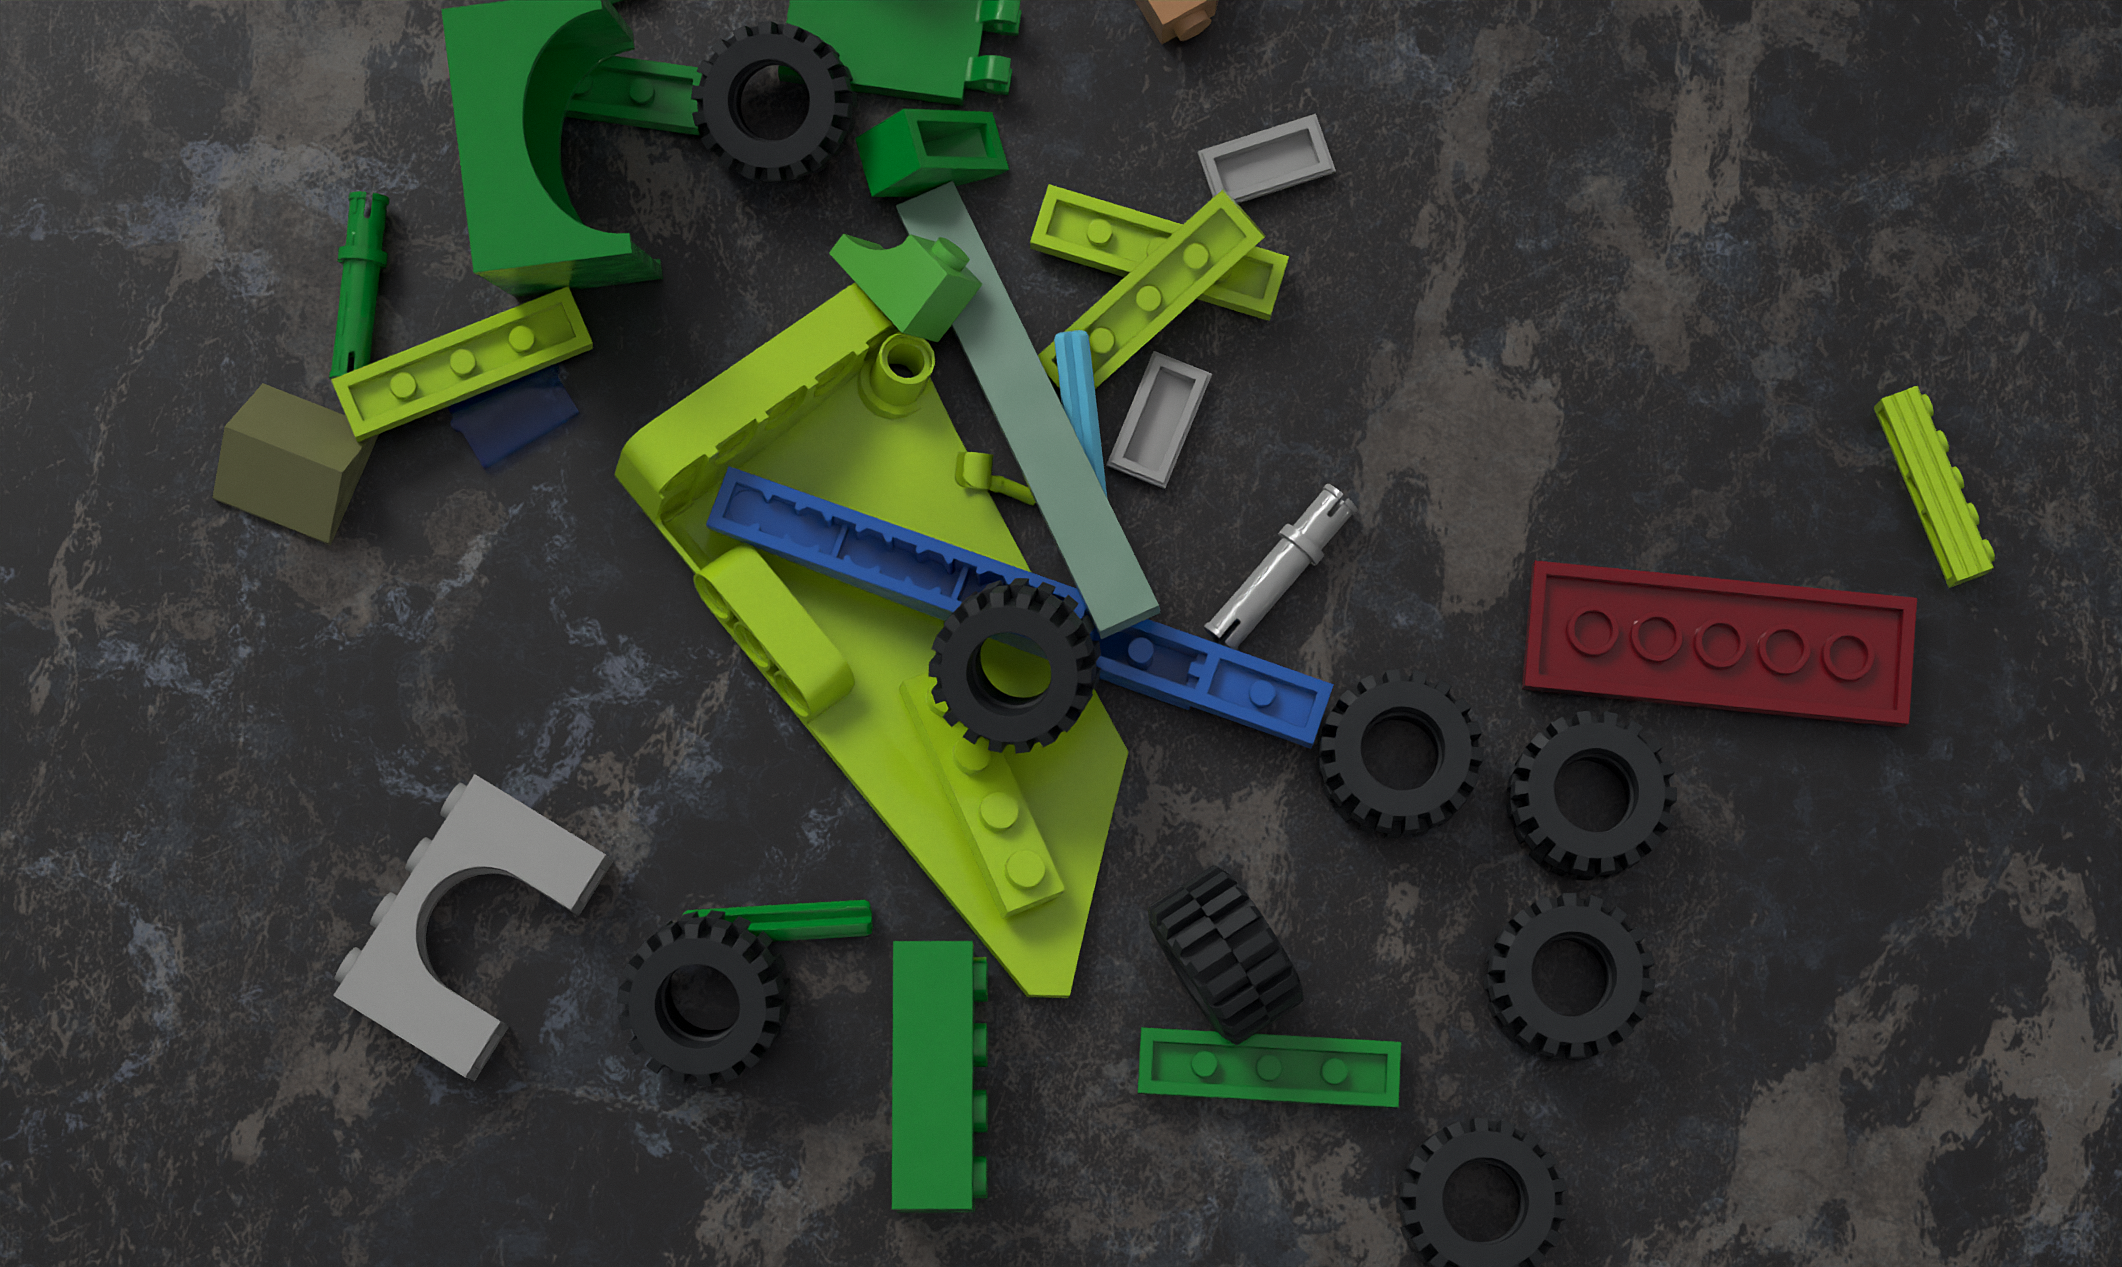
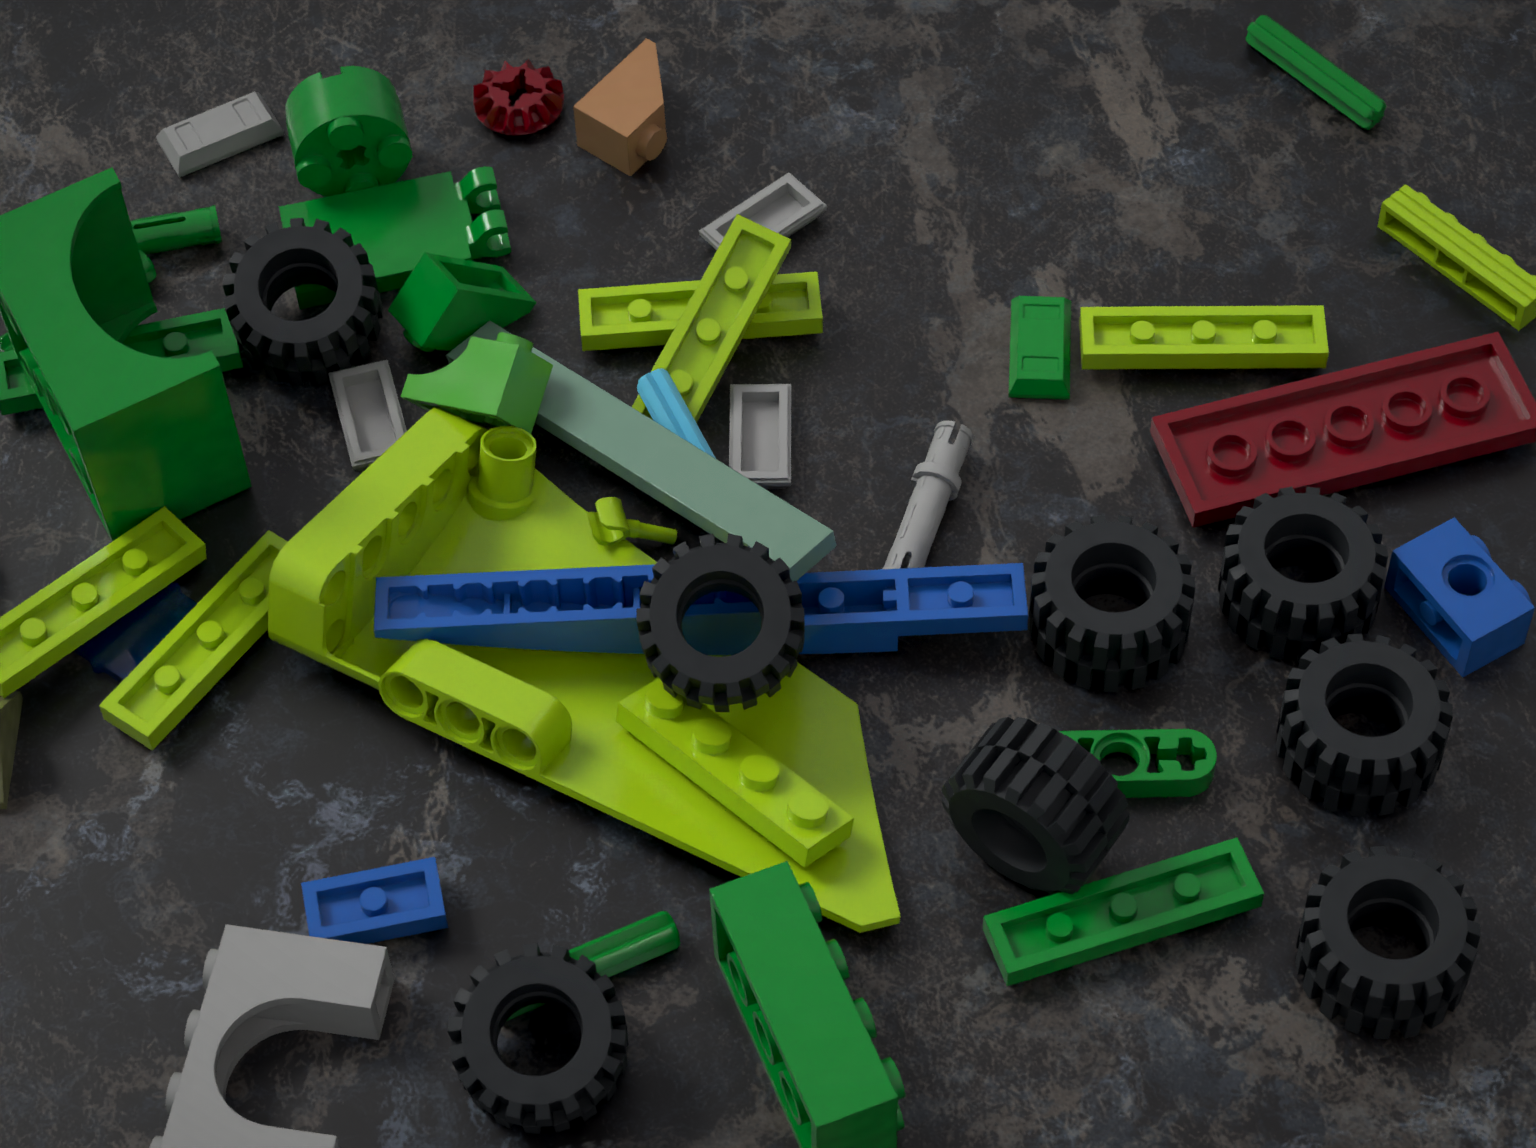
camera: 20 degrees left, 25 degrees down
(561, 447) = (196, 650): none -> lime plate
(616, 790) = (376, 903): none -> blue plate
(800, 245) = (367, 411): none -> light grey tile
(1375, 945) = (1167, 744): none -> green beam
(1472, 422) = (1040, 347): none -> green tile
(1631, 482) = (1203, 337): none -> lime plate
(1715, 910) = (1466, 629): none -> blue brick
(1902, 197) = (1316, 72): none -> green axle

